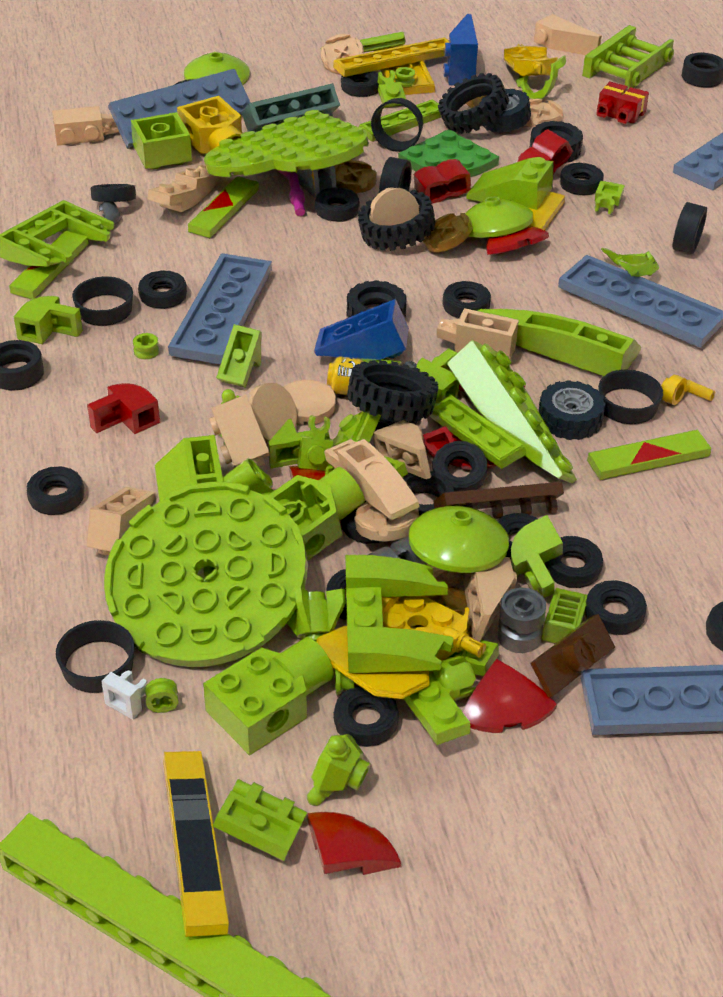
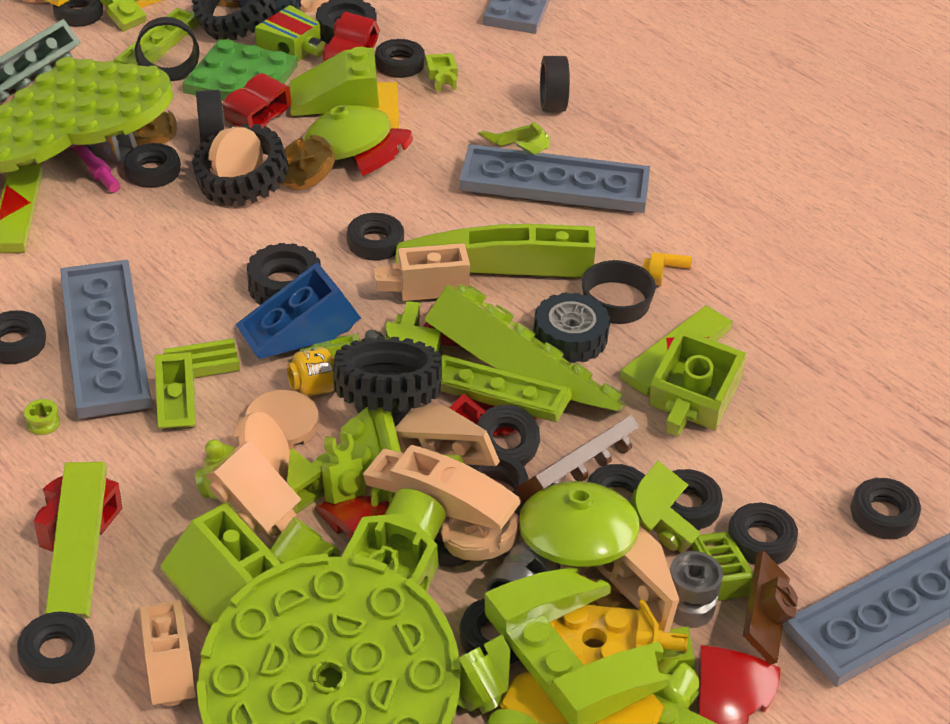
camera: 30 degrees left, 0 degrees up
(108, 425) = (77, 538): none -> lime tile
(284, 345) = (211, 357): none -> lime tile
(503, 137) = (290, 33): none -> lime torso
(637, 478) = (696, 381): none -> lime hinge

